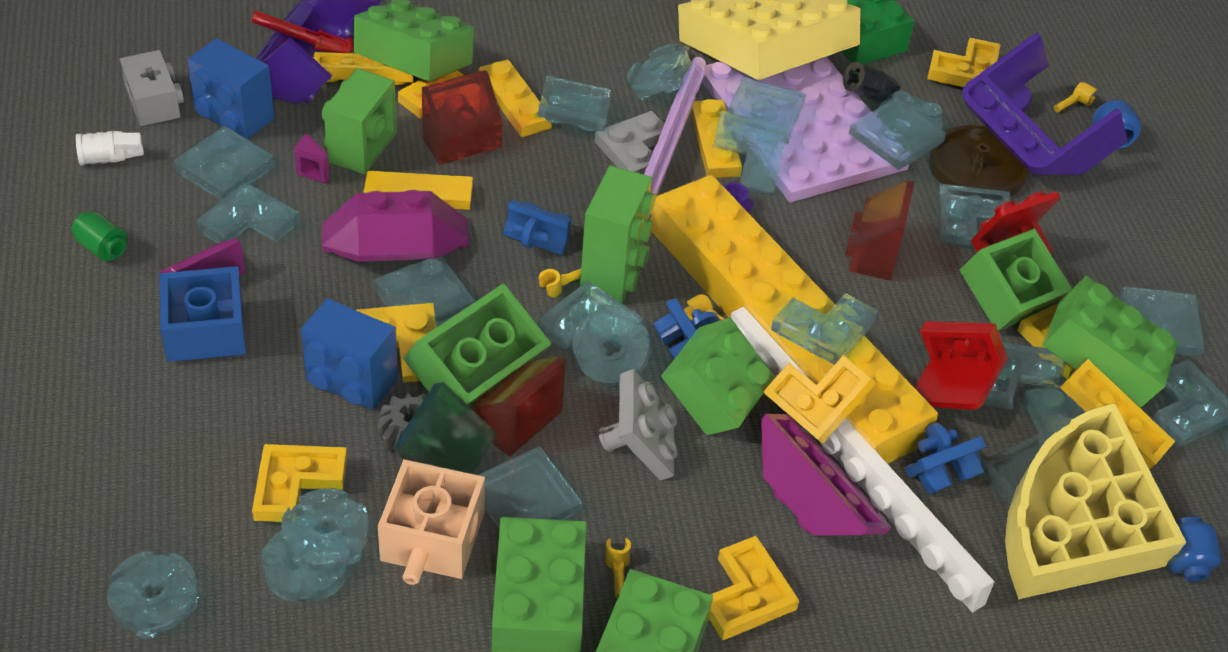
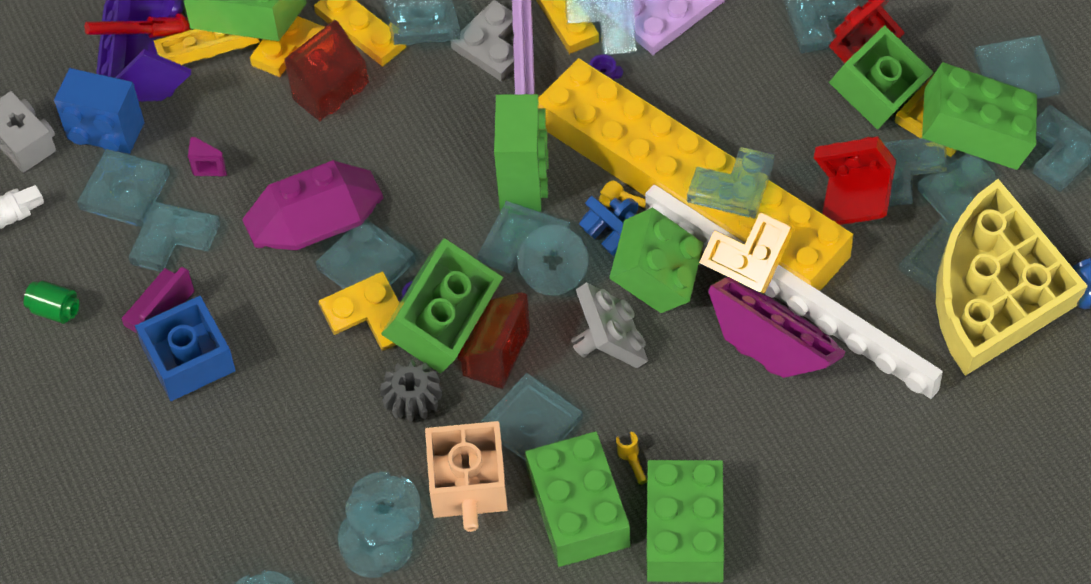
camera: 10 degrees left, 10 degrees up
(291, 468) = (327, 464): yellow plate -> none
(350, 354) = (333, 345): blue brick -> none
(360, 120) = (234, 105): bright green brick -> none
(445, 433) = (448, 392): clear green plate -> none
(451, 189) = (298, 157): yellow tile -> none
(537, 226) = (439, 160): blue hips -> none
(554, 281) = (472, 205): yellow hand -> none
(757, 593) = (754, 441): yellow plate -> none
(879, 231) = (747, 65): clear red slope -> none
(932, 468) = (883, 263): blue hips -> none
(1094, 389) = (982, 169): yellow plate -> none

